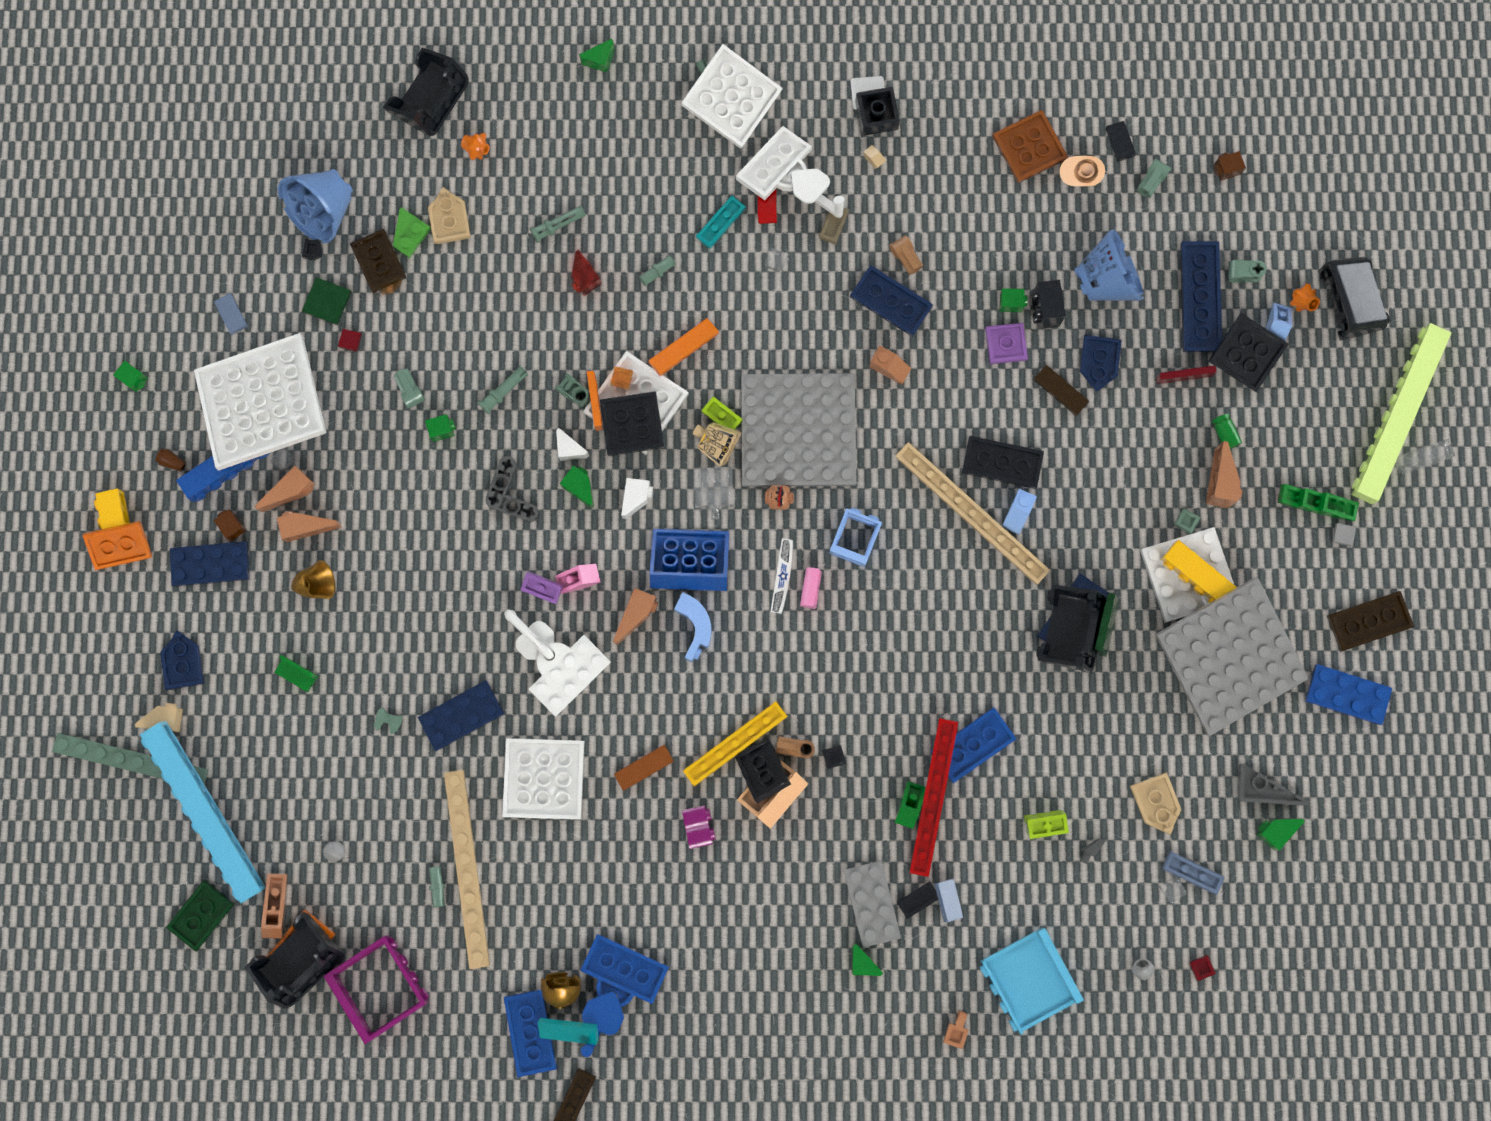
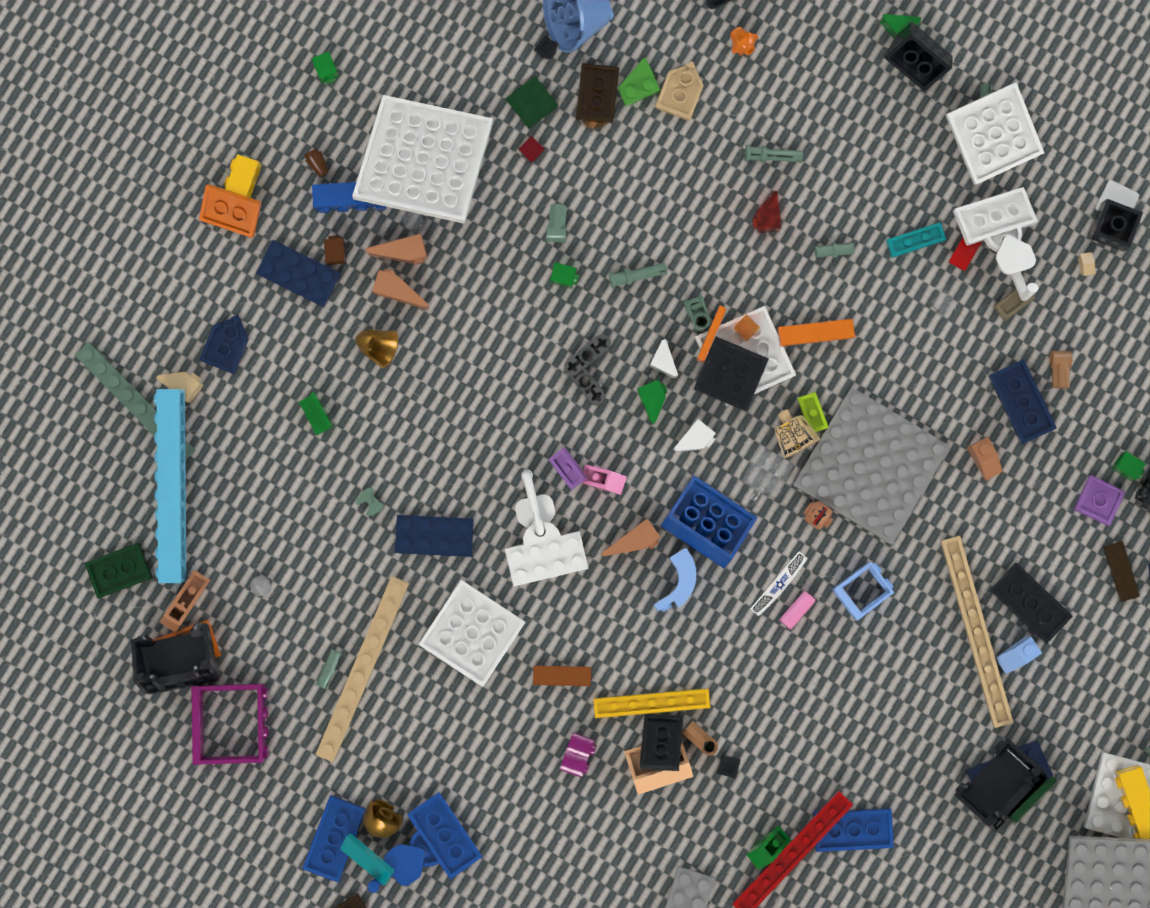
camera: 30 degrees right, 5 degrees up
(230, 313) = (443, 63): sand blue tile -> none
(629, 71) = (918, 56): none -> black slope

